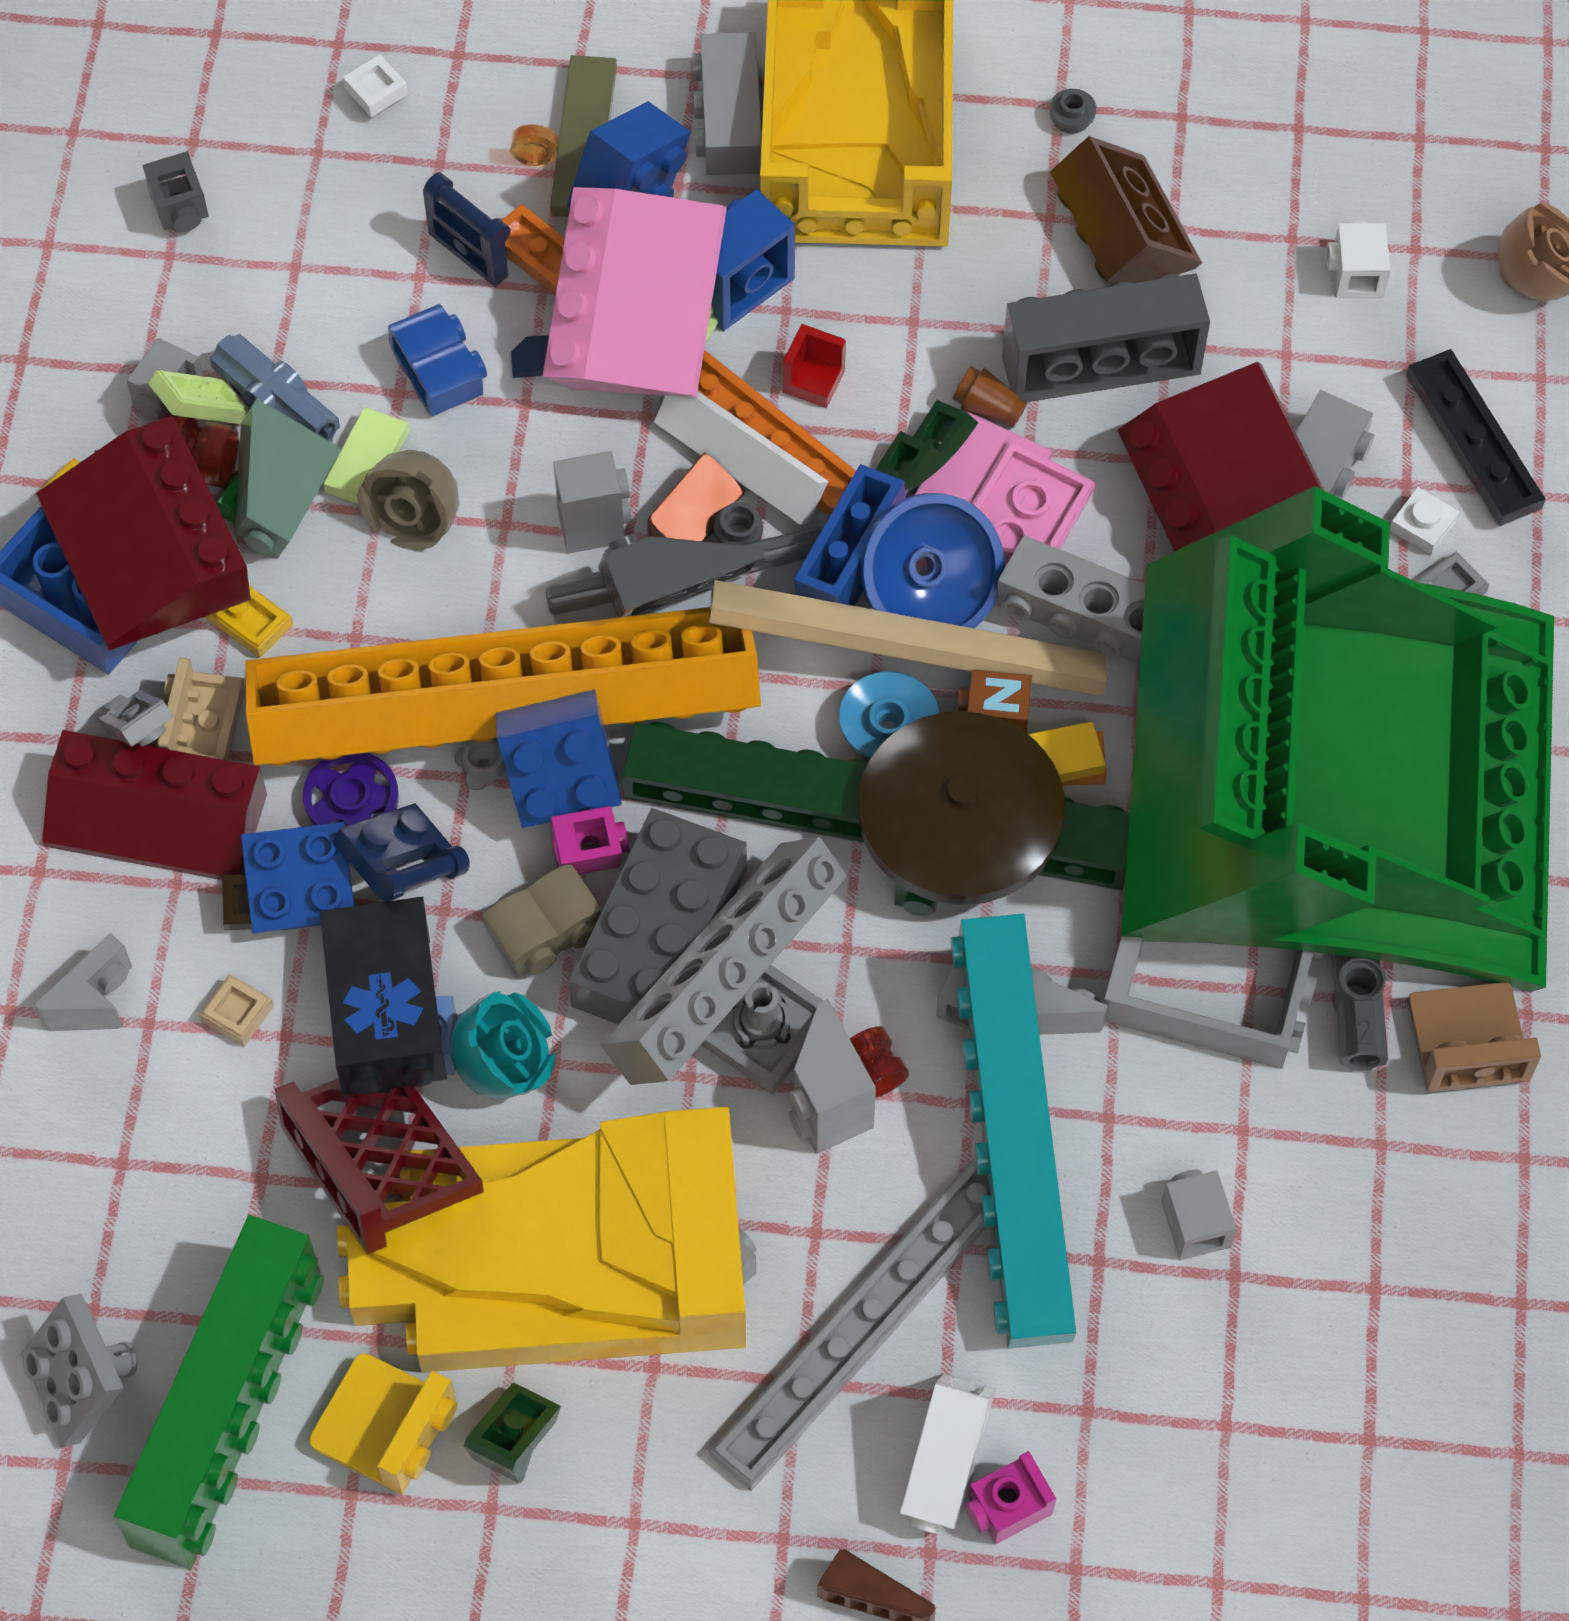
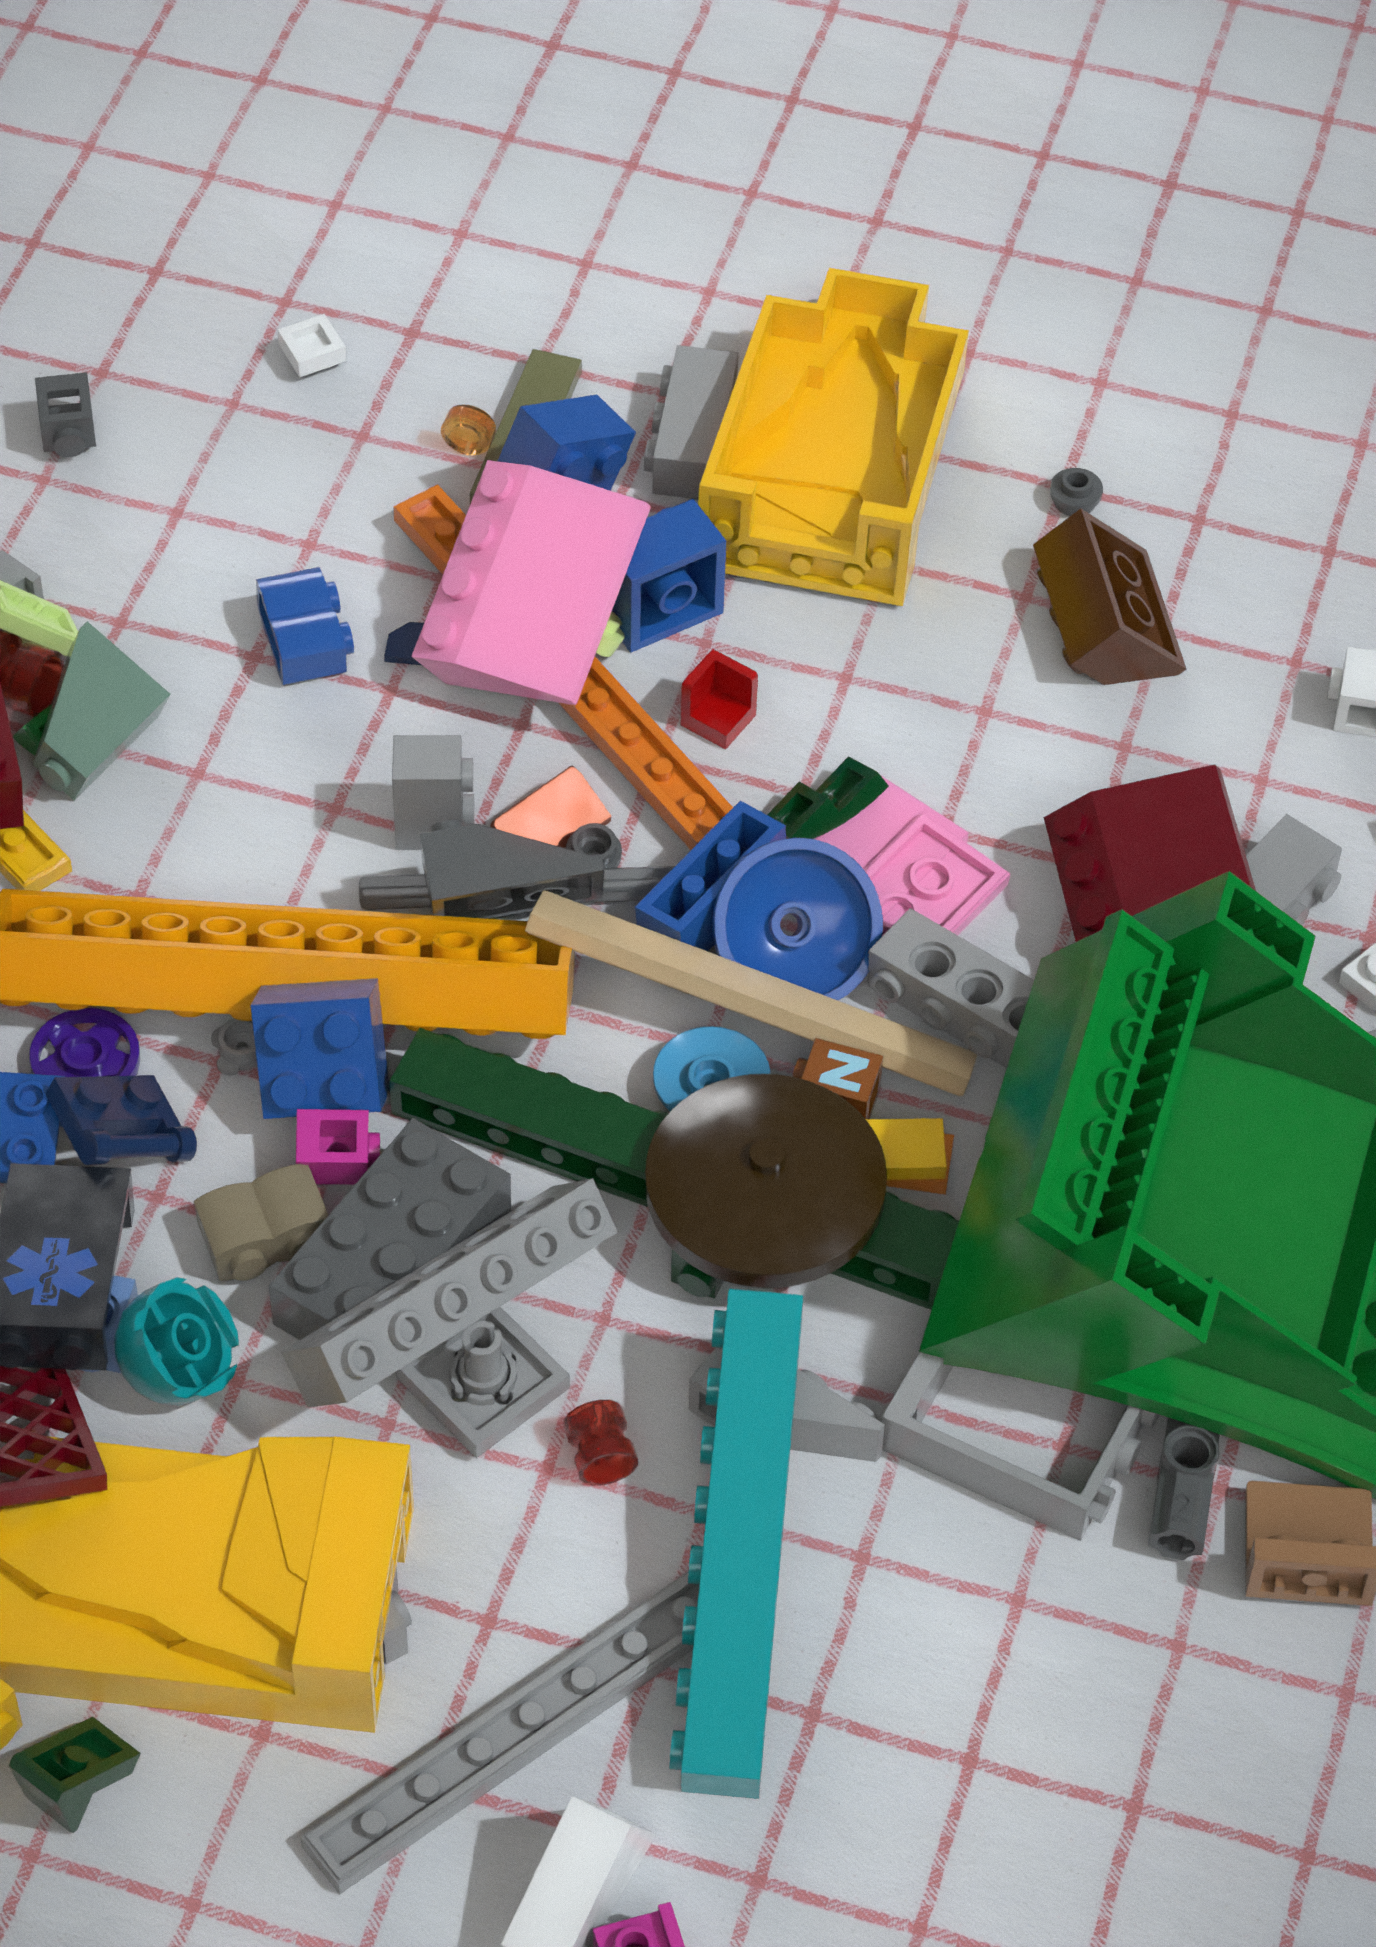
camera: 10 degrees right, 10 degrees down
(272, 383) = (122, 621): sand blue piece -> none
(368, 443) = (199, 713): yellowish green tile -> none
(410, 498) = (232, 757): dark tan cylinder -> none
(466, 229) = (368, 498): dark blue plate -> none
(744, 454) = (617, 776): white tile -> none
(831, 1085) = (538, 1453): light grey slope -> none
(988, 397) = (909, 765): dark orange cone -> none
(1105, 337) = (1052, 720): dark grey brick -> none
(1198, 1213) = (939, 1679): light grey brick -> none

